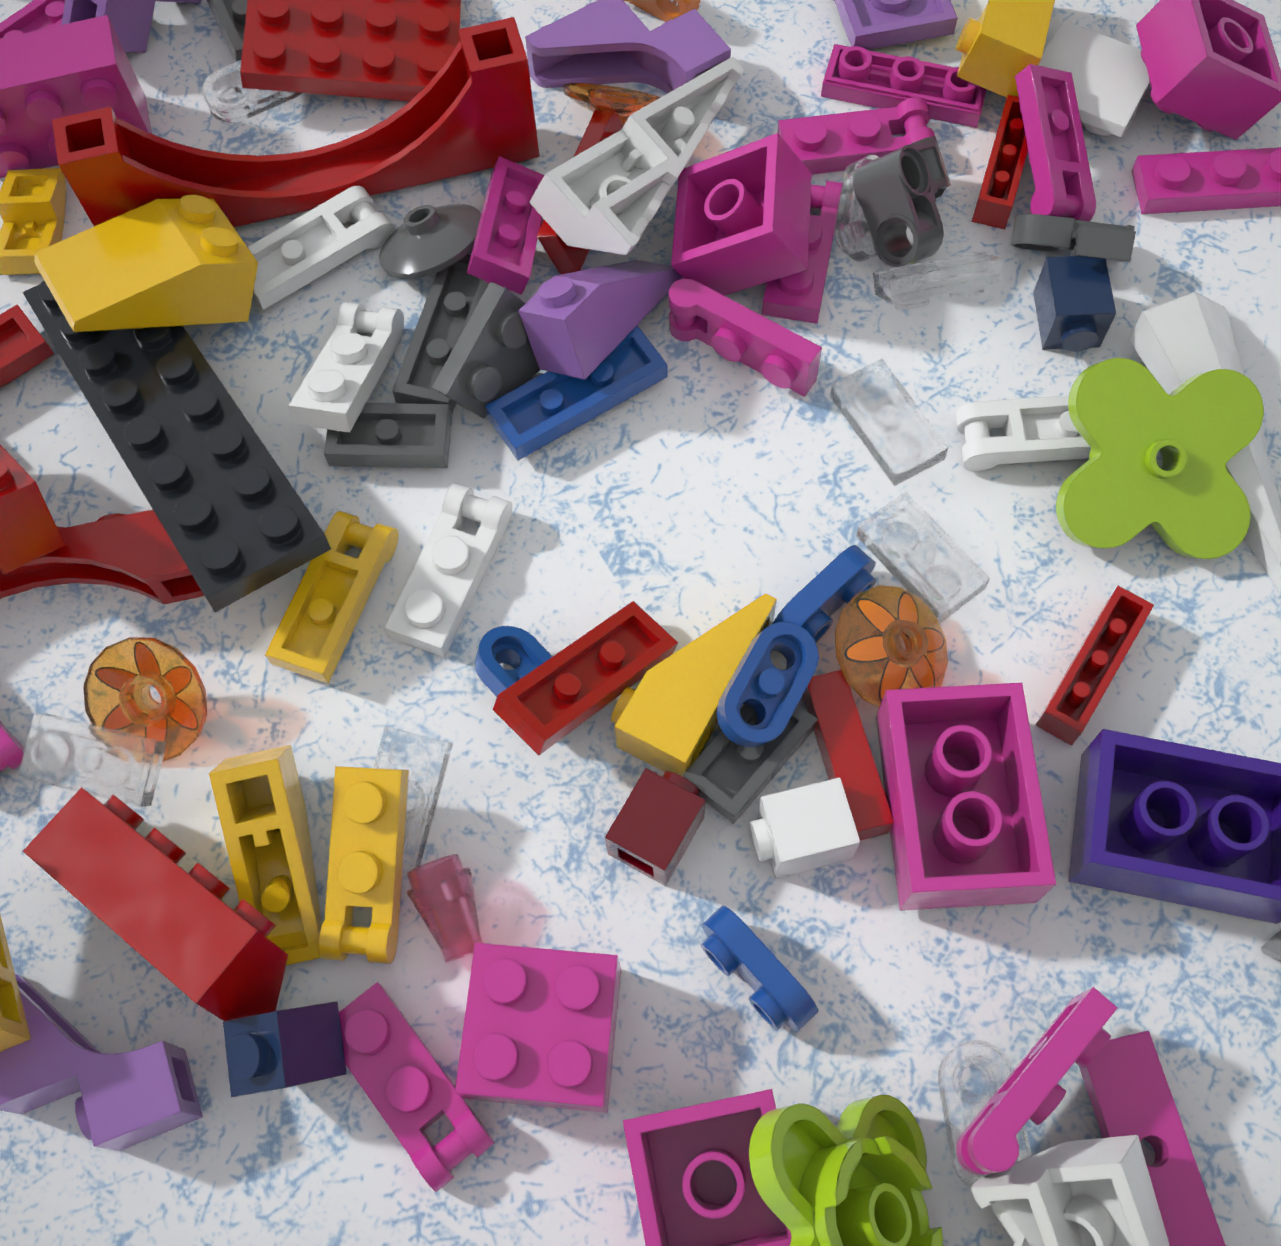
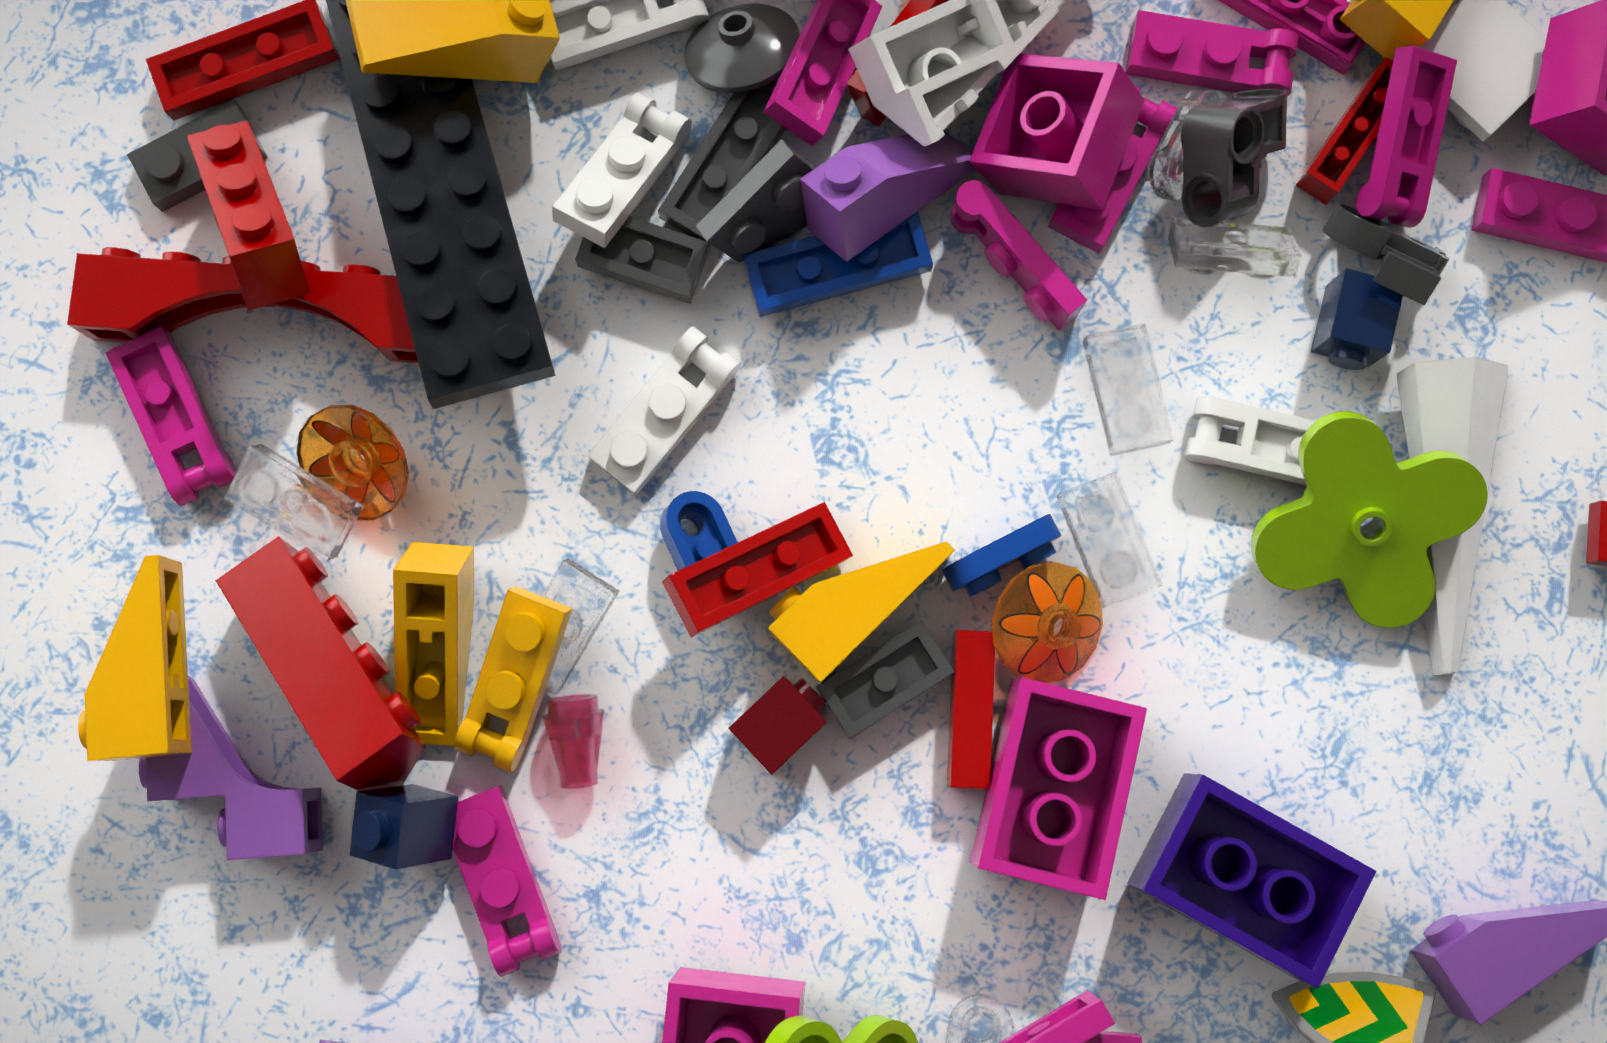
camera: 10 degrees right, 15 degrees up
(331, 598) = (548, 408): yellow plate -> none
(539, 1027) = (624, 874): dark pink brick -> none
(766, 688) = (920, 636): blue plate -> none
(777, 992) = (835, 906): blue plate -> none
(805, 828) = (909, 768): white brick -> none
(1094, 665) = (1229, 695): red piece -> none

